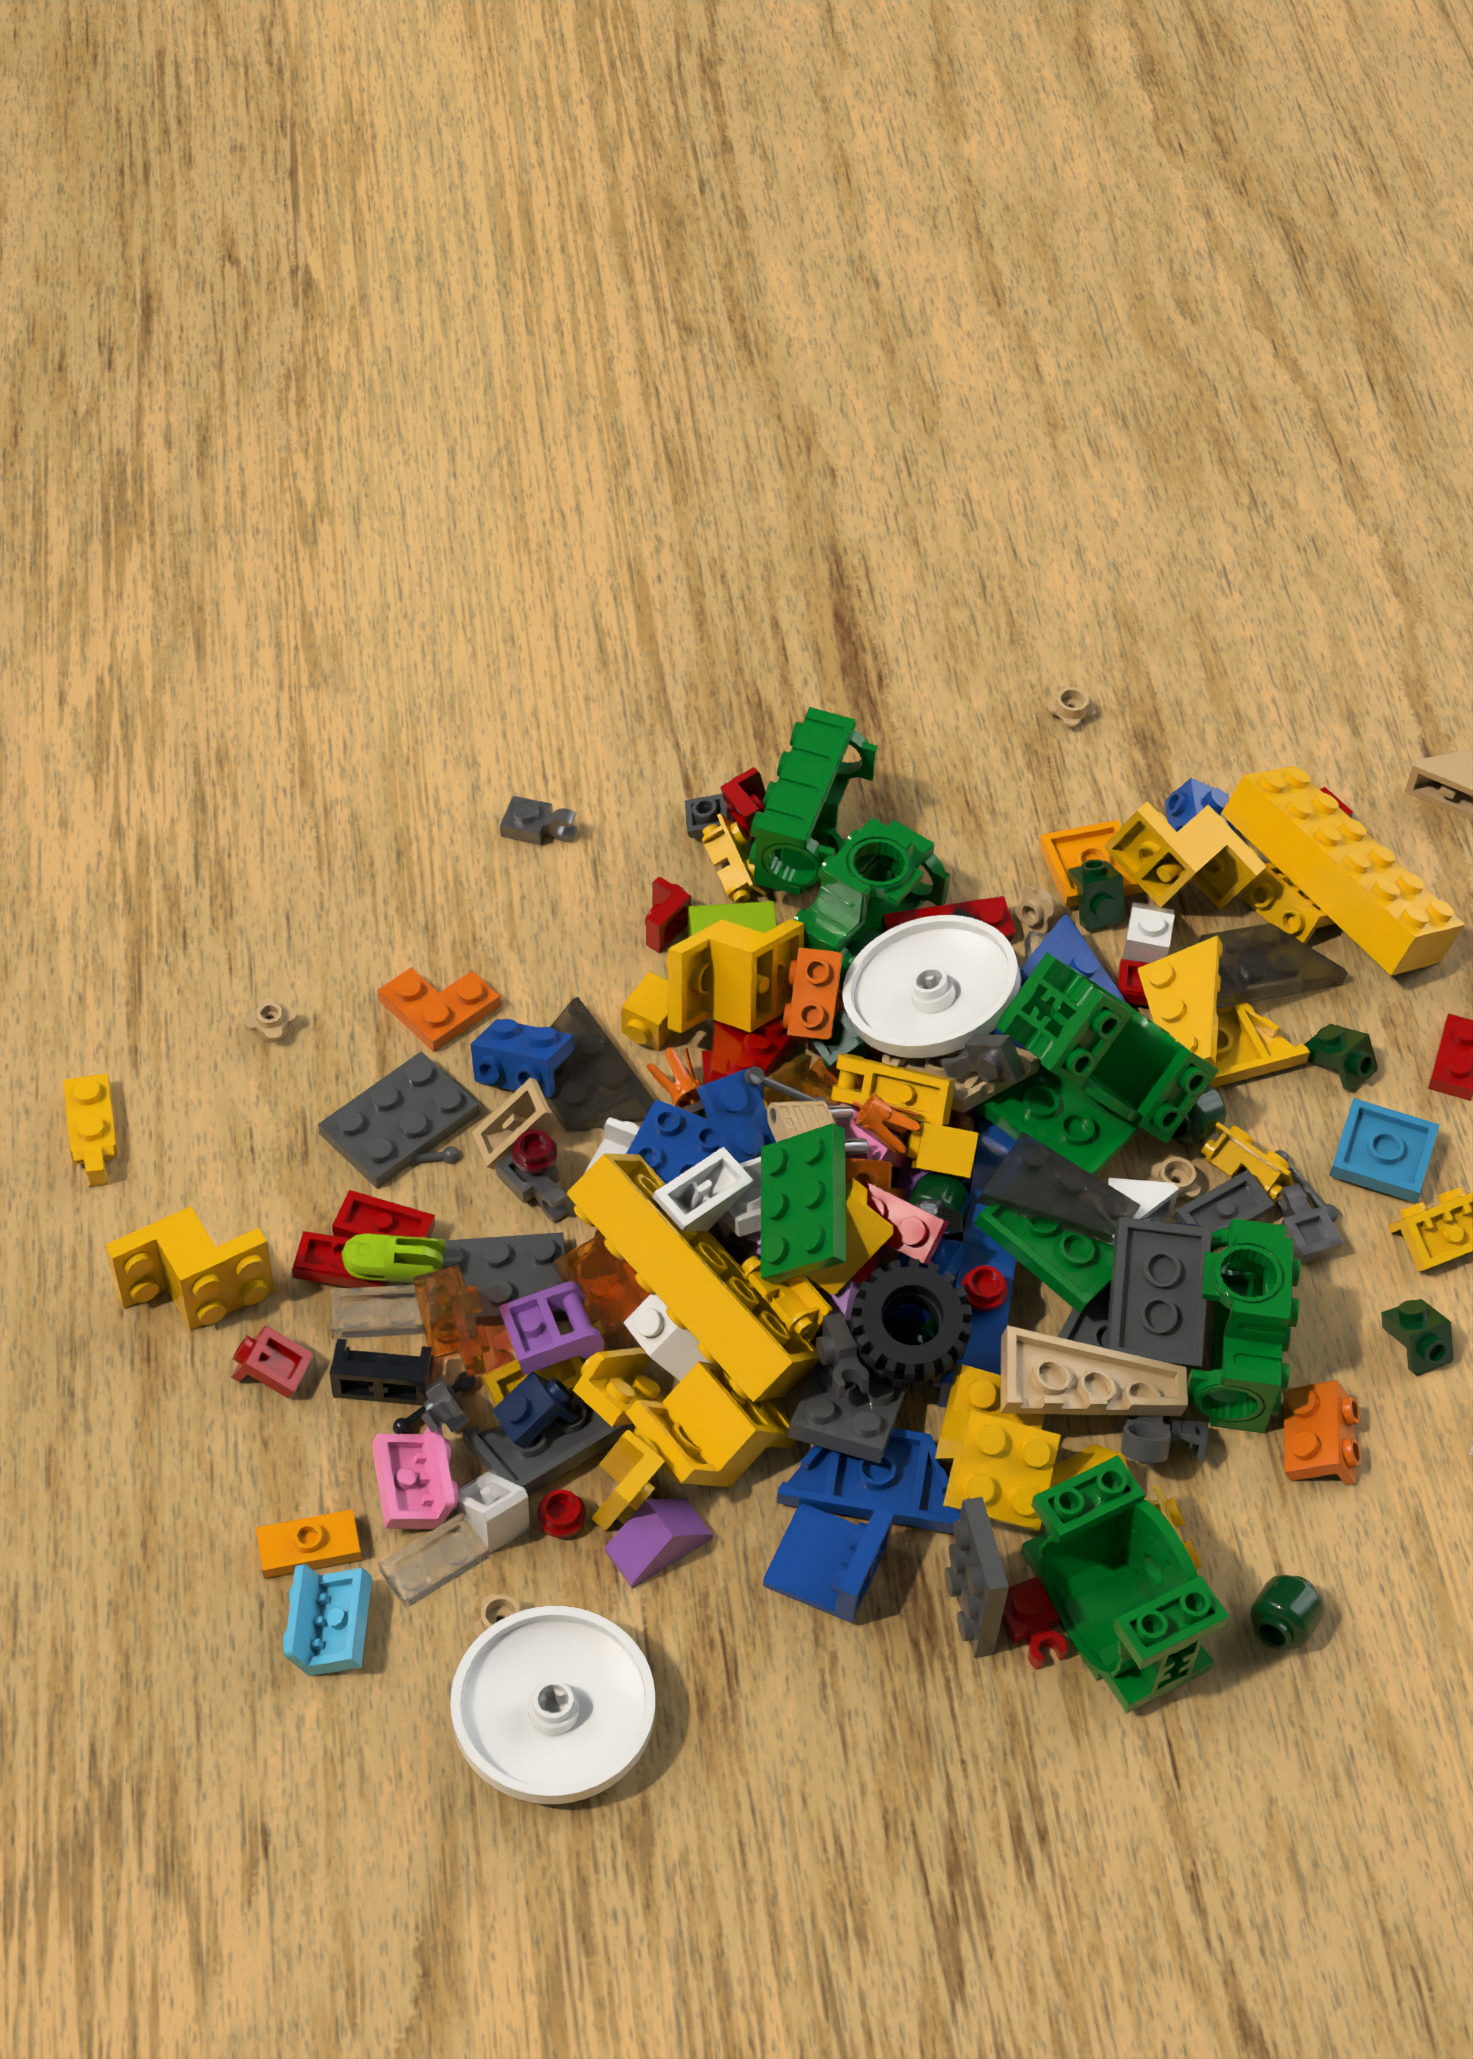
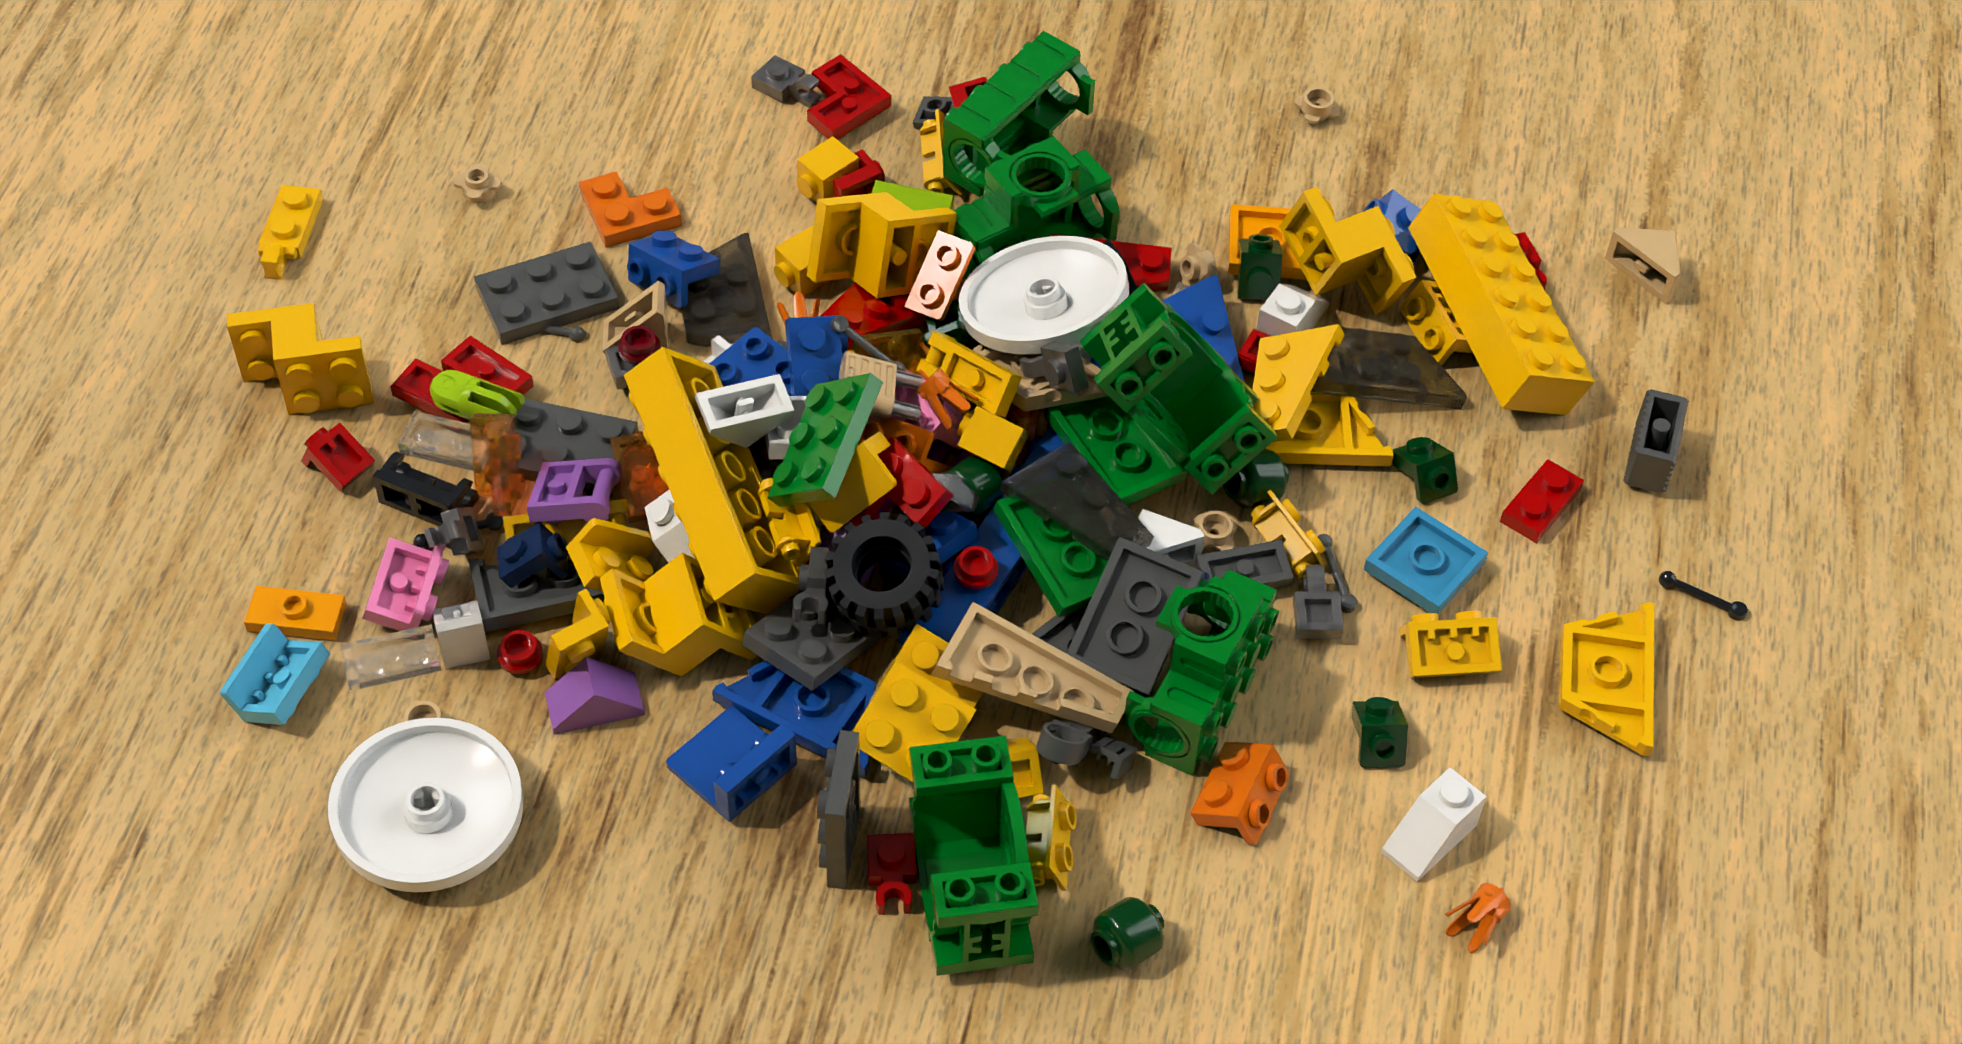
camera: 20 degrees right, 0 degrees up
(614, 820) = (851, 98): none -> red plate
(625, 908) = (822, 166): none -> yellow brick

